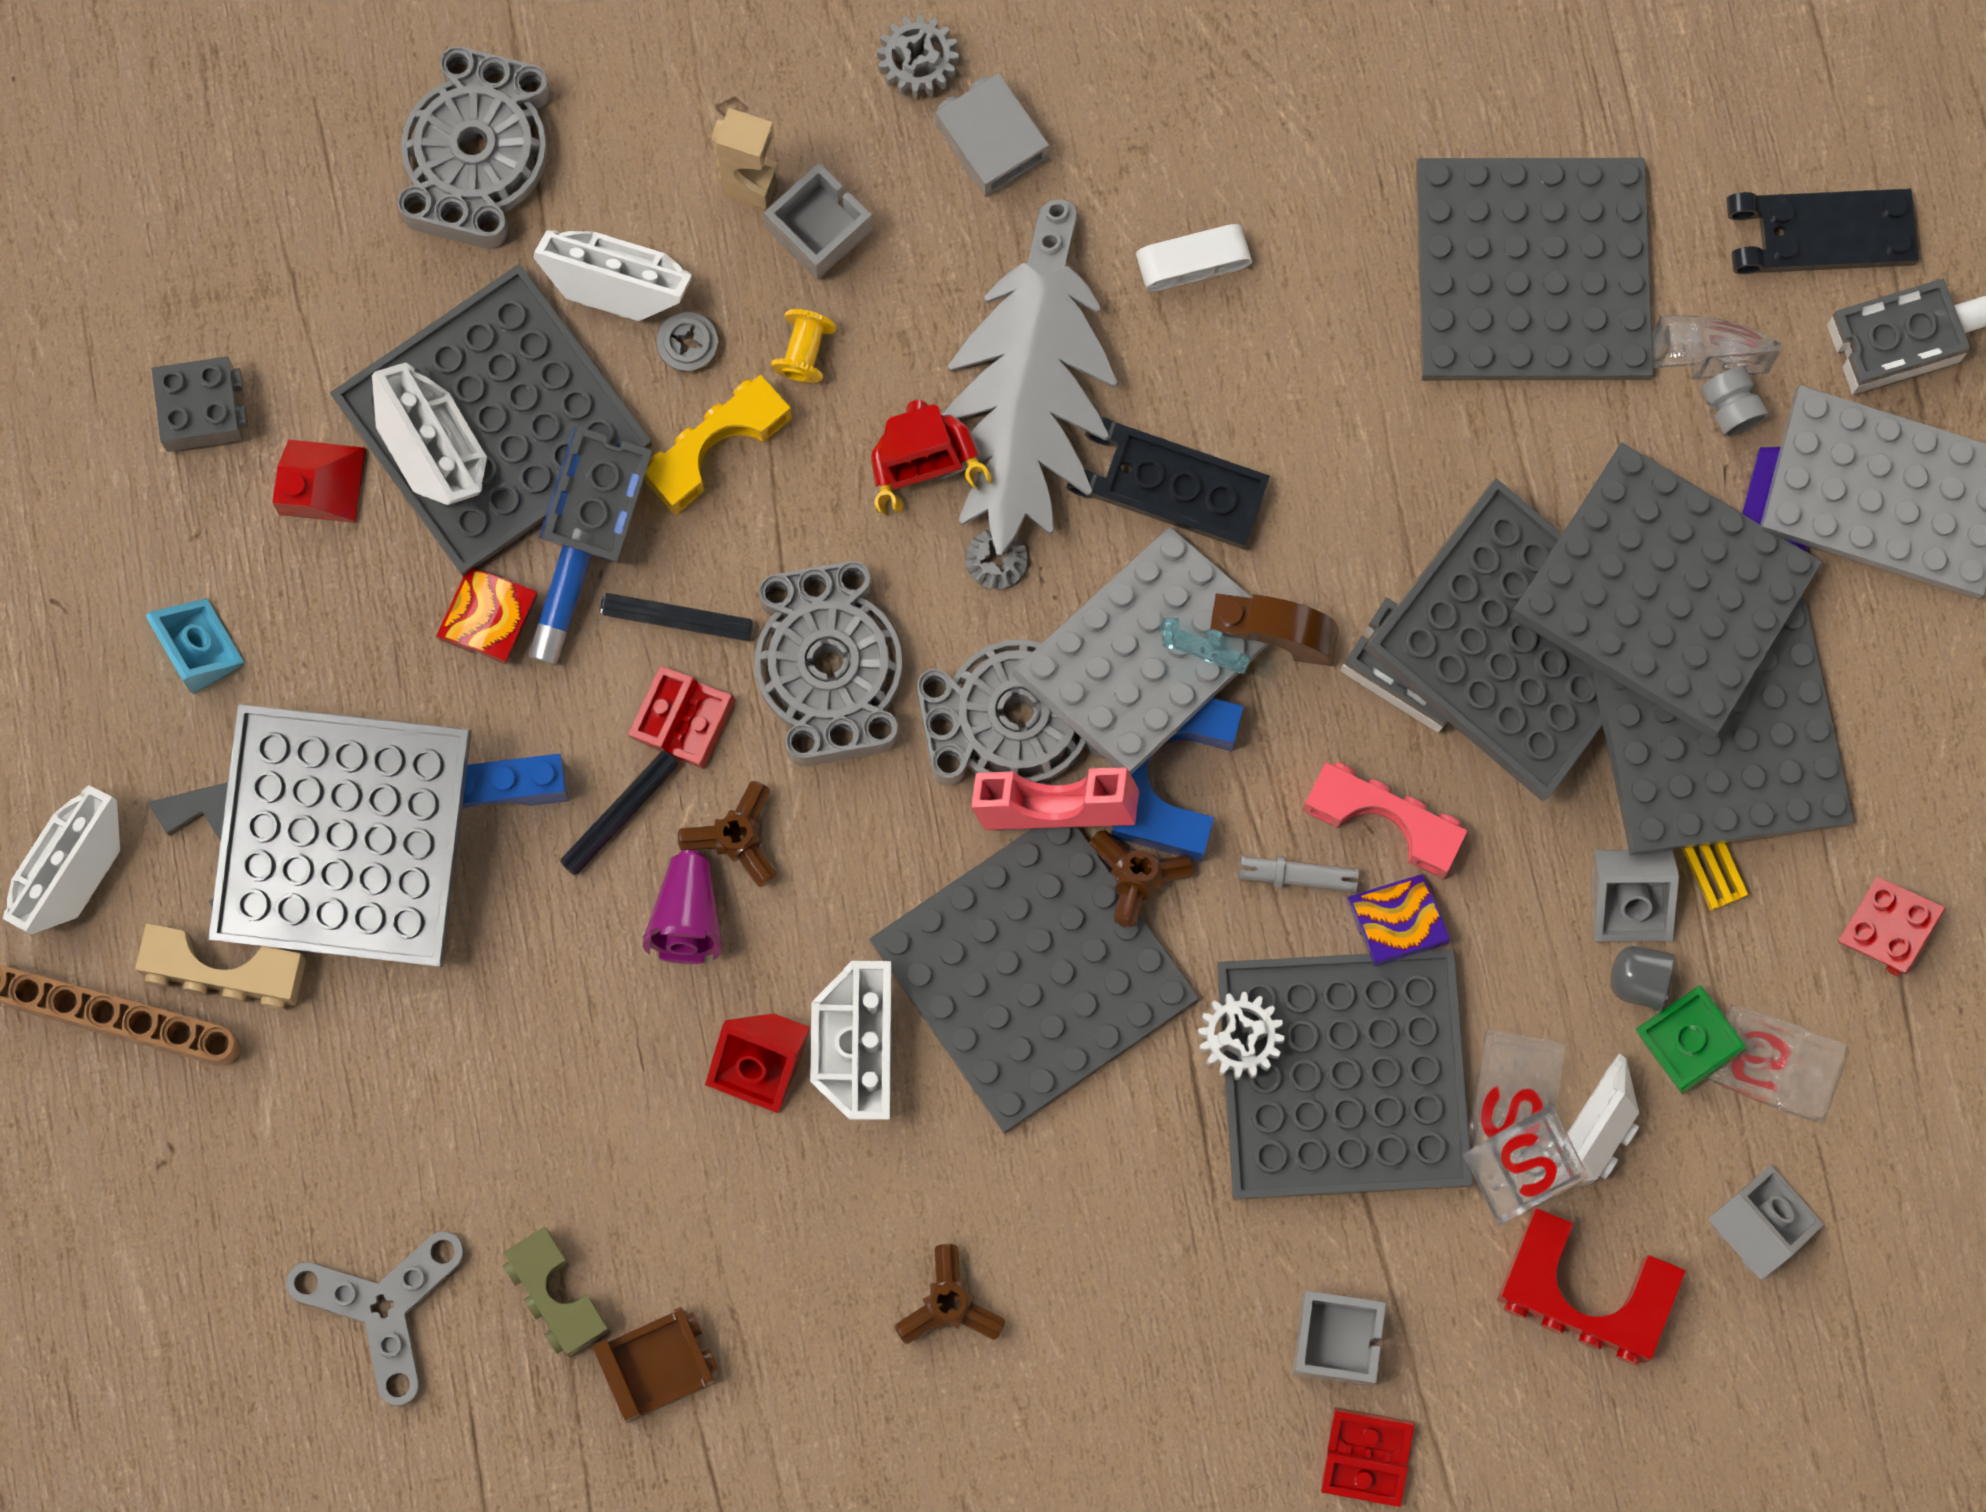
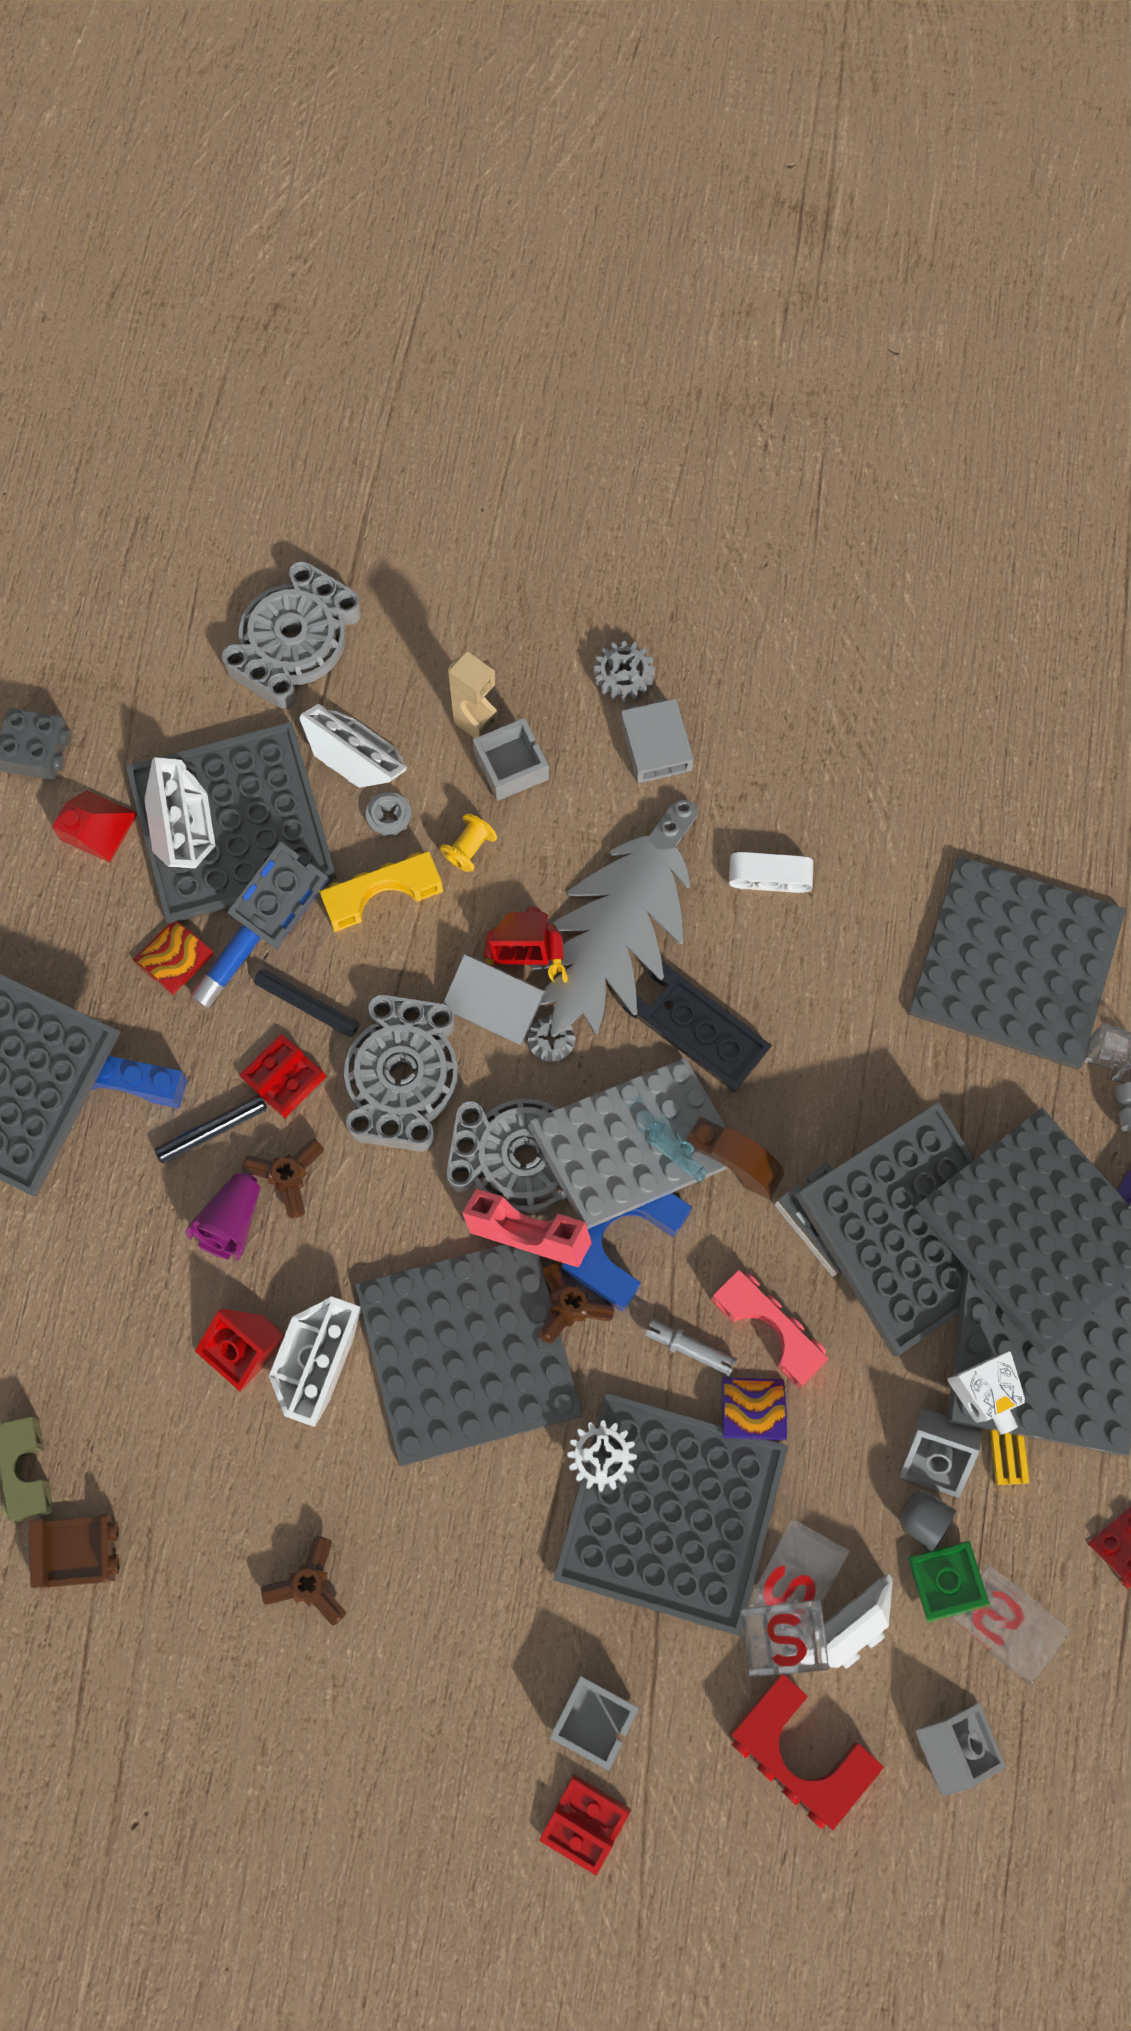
camera: 20 degrees right, 5 degrees down
(908, 533) = (493, 999): none -> light grey tile
(1669, 801) = (990, 1391): none -> white torso

